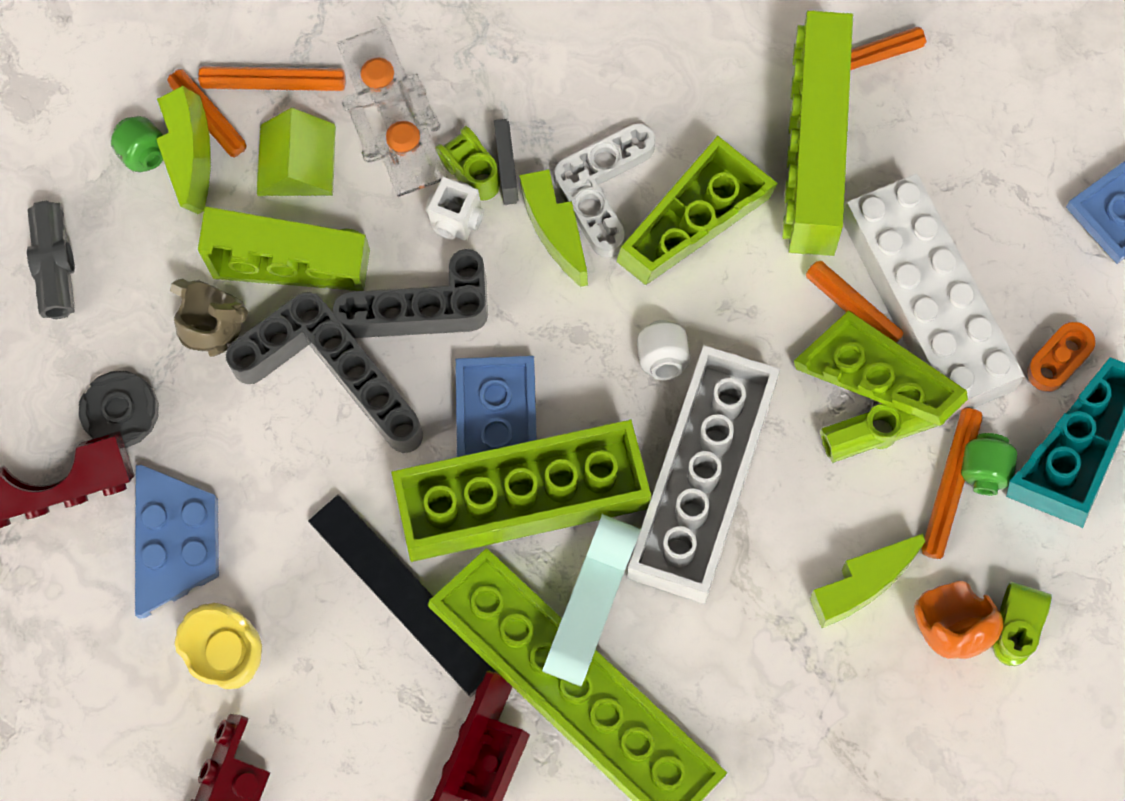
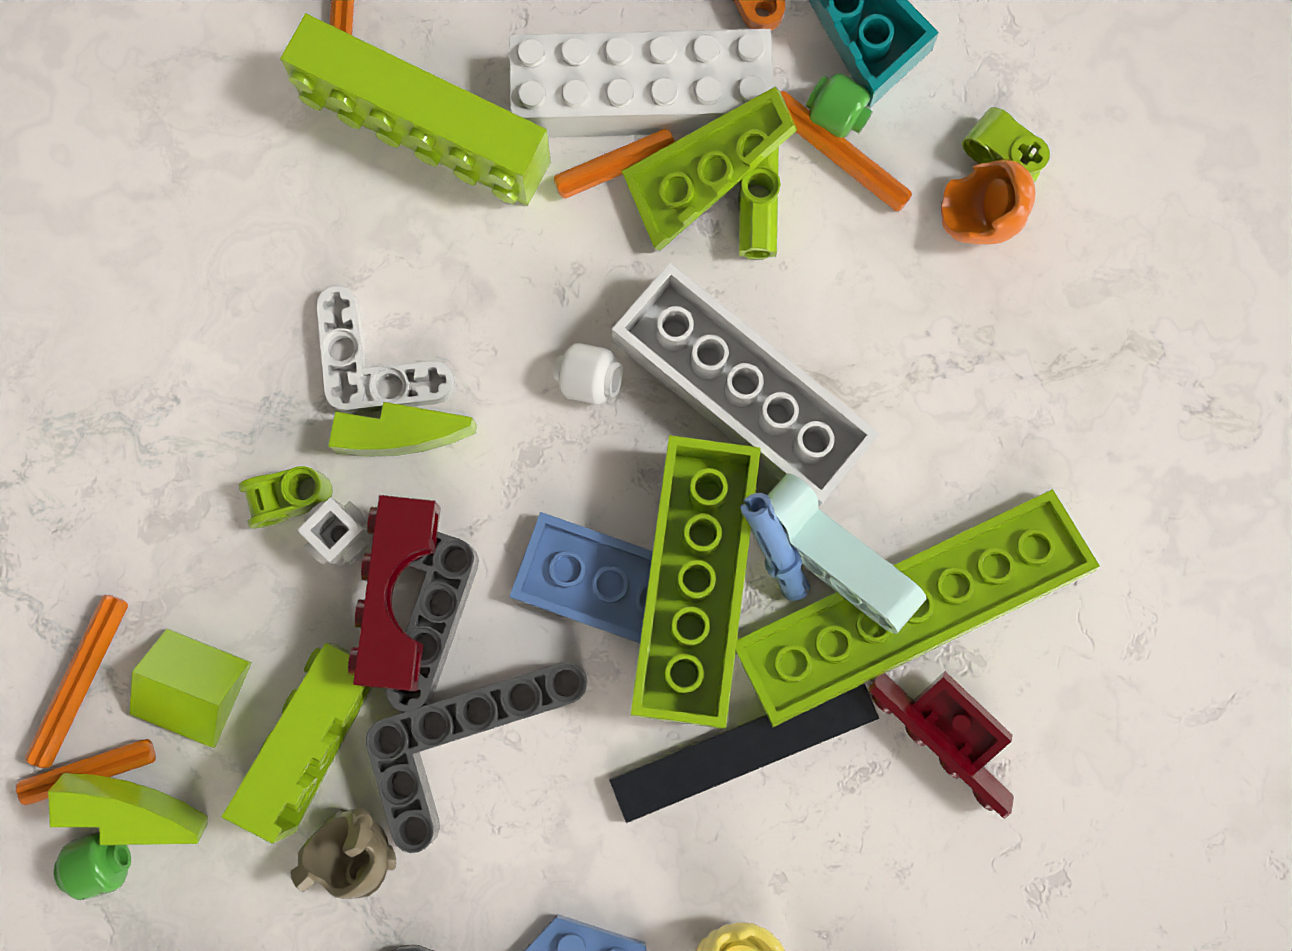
camera: 80 degrees left, 10 degrees up
(404, 107) = (182, 543): clear piece -> none
(467, 251) = (401, 534): none -> dark red arch
(506, 161) = (300, 455): dark grey tile -> none
(568, 557) = (781, 558): none -> medium blue pin
(700, 206) = (443, 266): lime wedge -> none
(864, 580) = (911, 275): lime slope -> none

